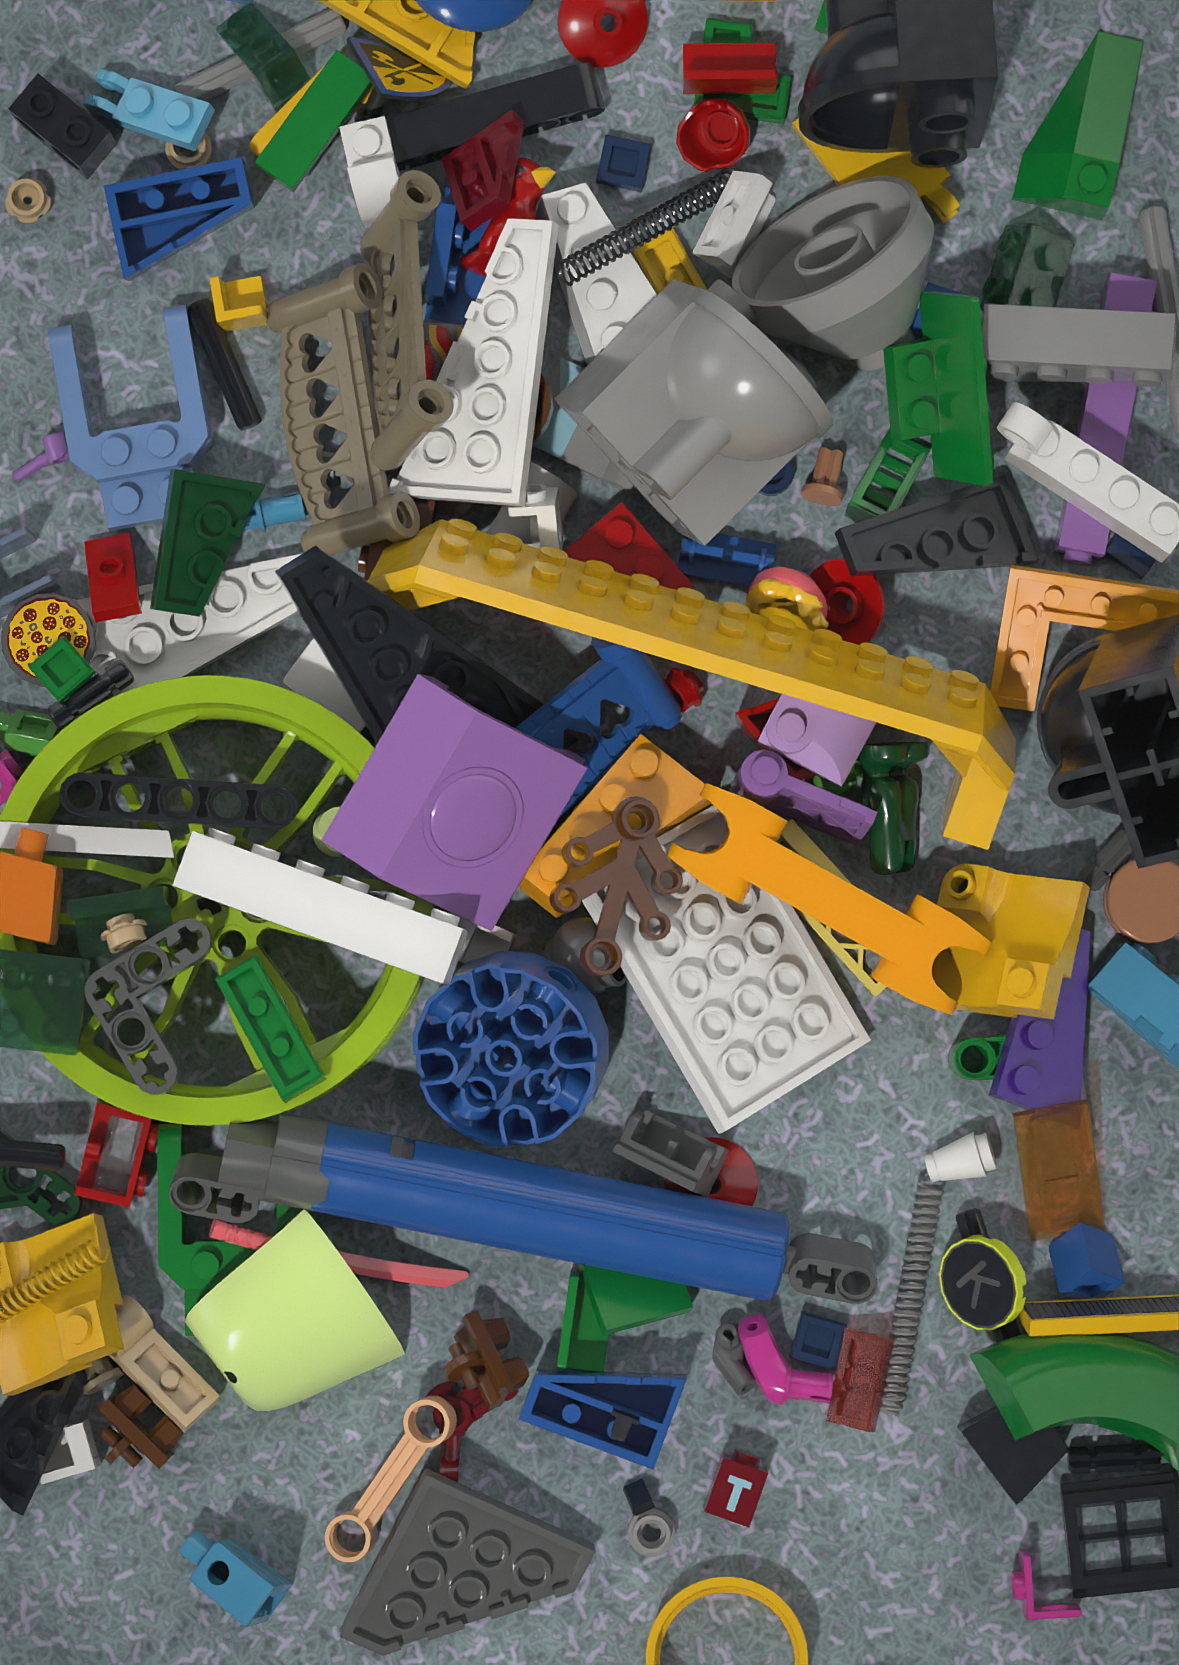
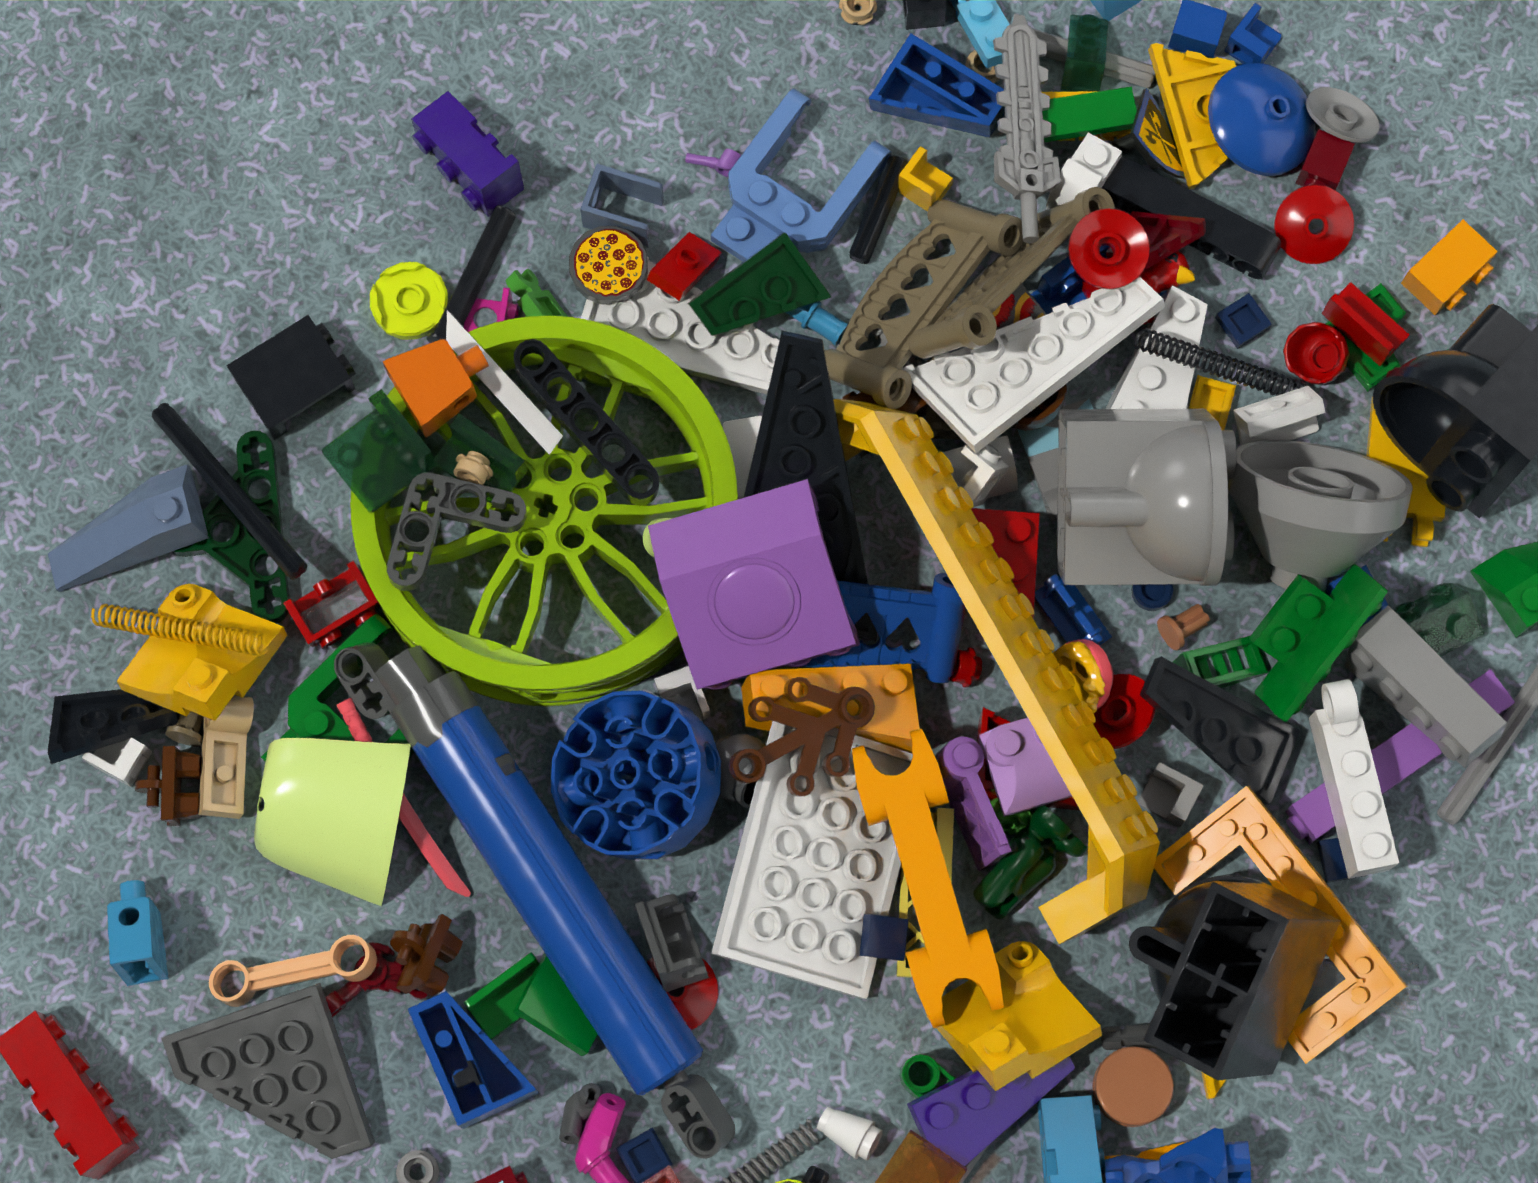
camera: 40 degrees right, 10 degrees down
(62, 669) = (598, 287): green tile -> none
(91, 694) = (625, 322): black axle -> none
(270, 1029) = (501, 613): green tile -> none
(317, 210) = (1024, 164): none -> light grey bar
(320, 907) = (607, 569): white brick -> none
(470, 197) = (1122, 235): none -> red dish
(638, 1497) = (432, 1141): black piece -> none
(837, 978) = (883, 937): none -> dark blue tile
(951, 632) = (1170, 794): none -> light grey panel

